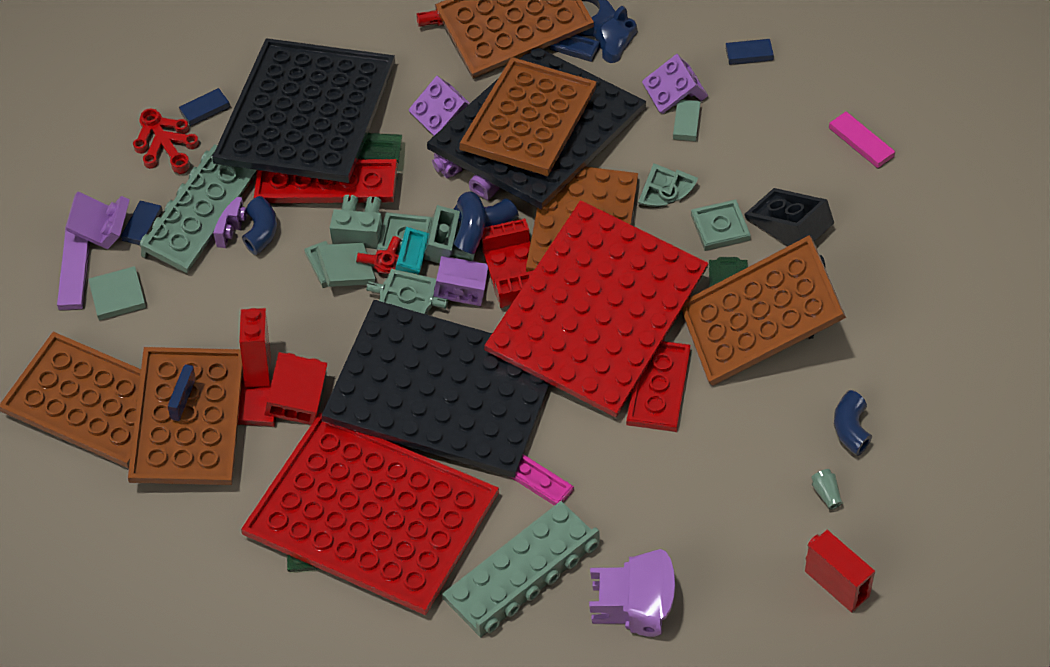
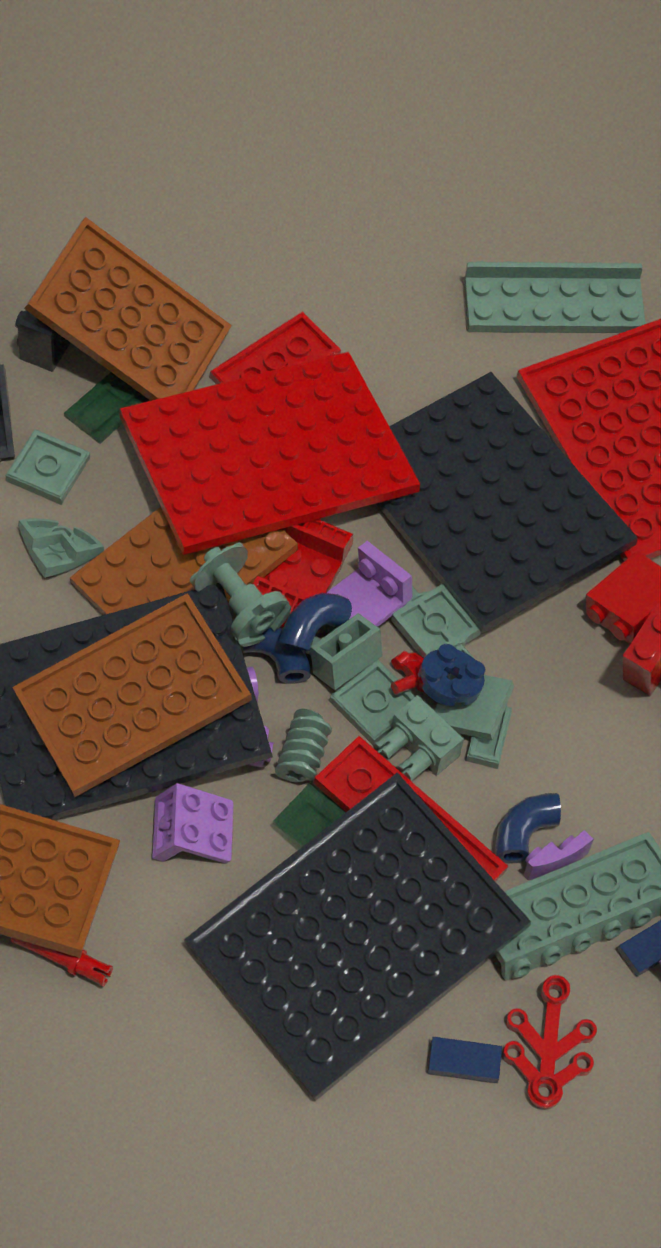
camera: 150 degrees left, 5 degrees up
(377, 263) = (446, 661): none -> dark blue plate
(412, 251) = (391, 660): teal tile -> none
(419, 176) = (303, 746): none -> sand green piece
(509, 192) = (253, 610): none -> sand green piece
(542, 481) = (466, 355): dark pink tile -> none
(636, 593) = (484, 183): medium lavender piece -> none
(826, 486) = (228, 172): sand green cone -> none
(839, 570) = (300, 94): red brick -> none
(848, 425) = (152, 203): dark blue cylinder -> none

